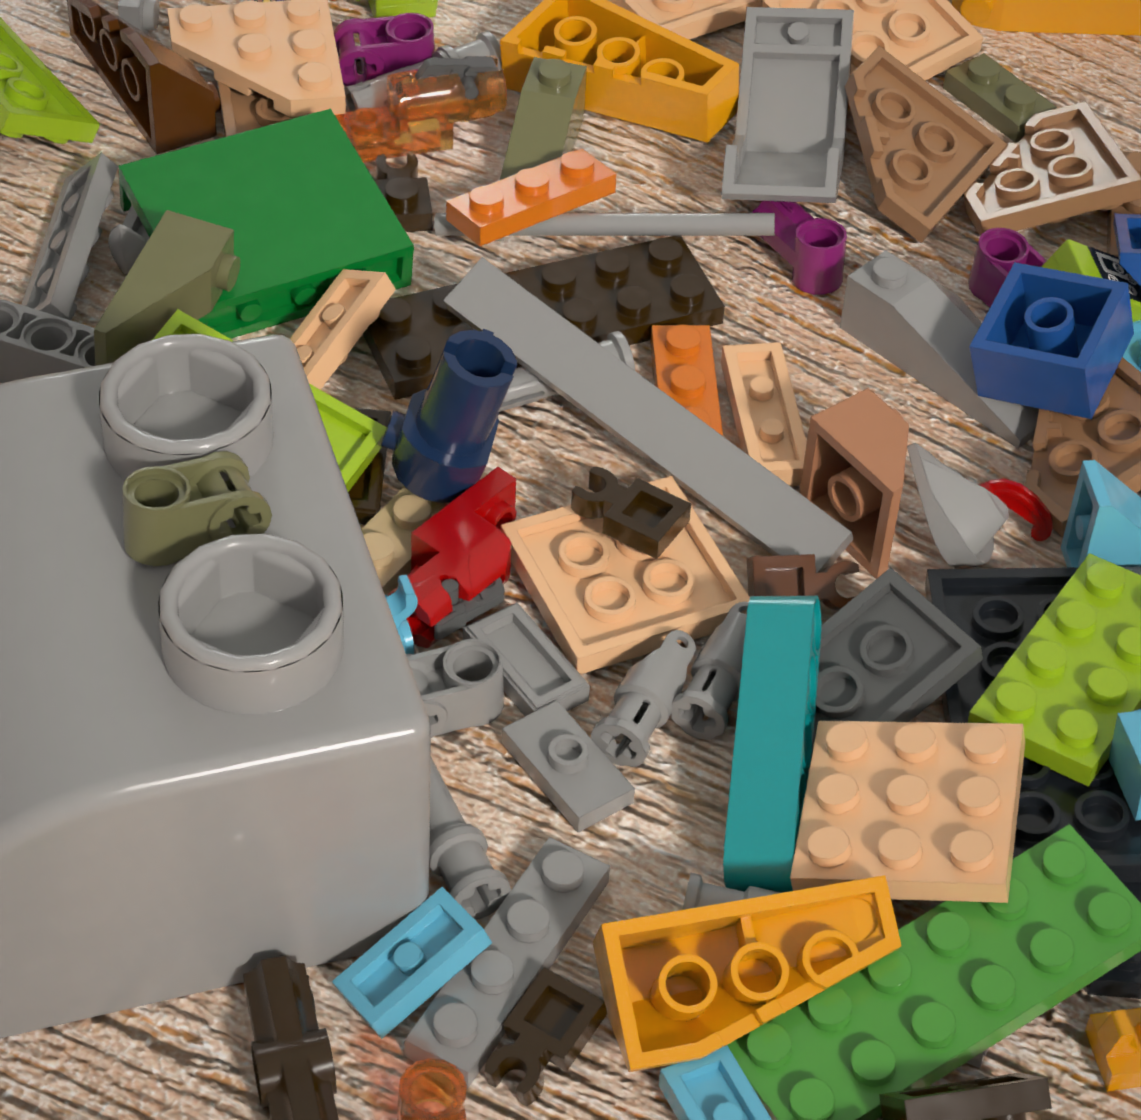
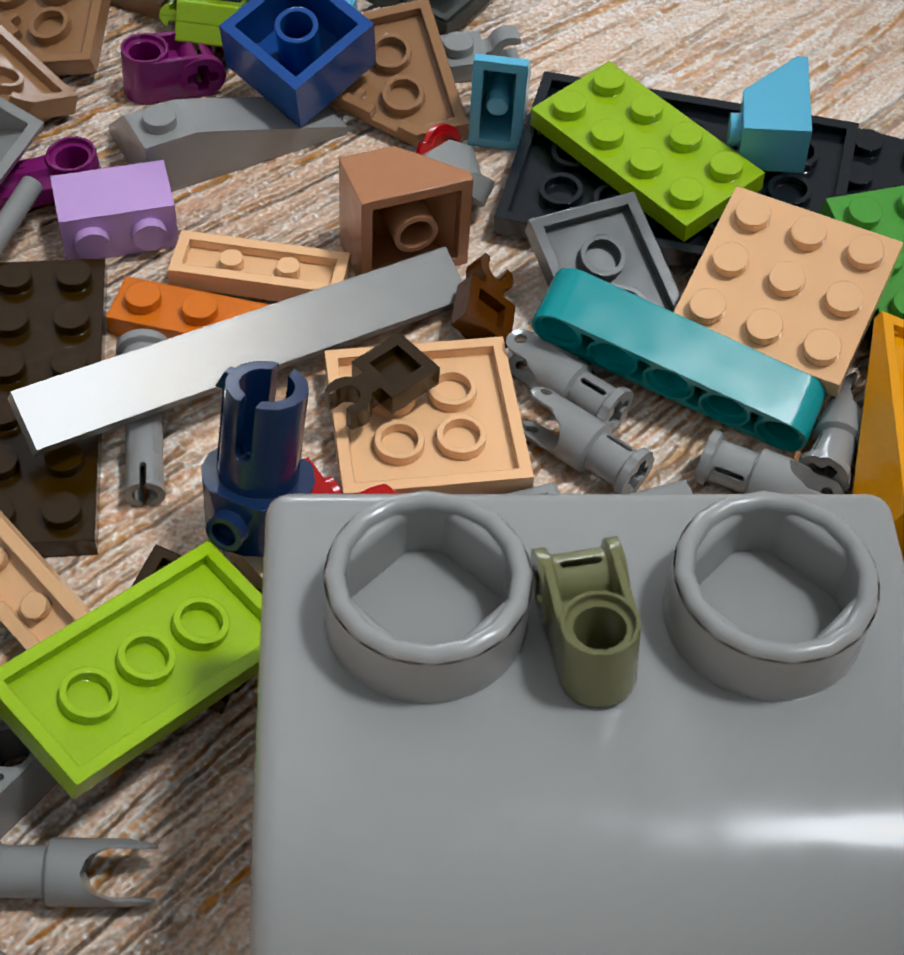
camera: 75 degrees left, 5 degrees up
(662, 846) = (755, 471): none -> light grey piece
(785, 294) = (115, 211): none -> lavender brick

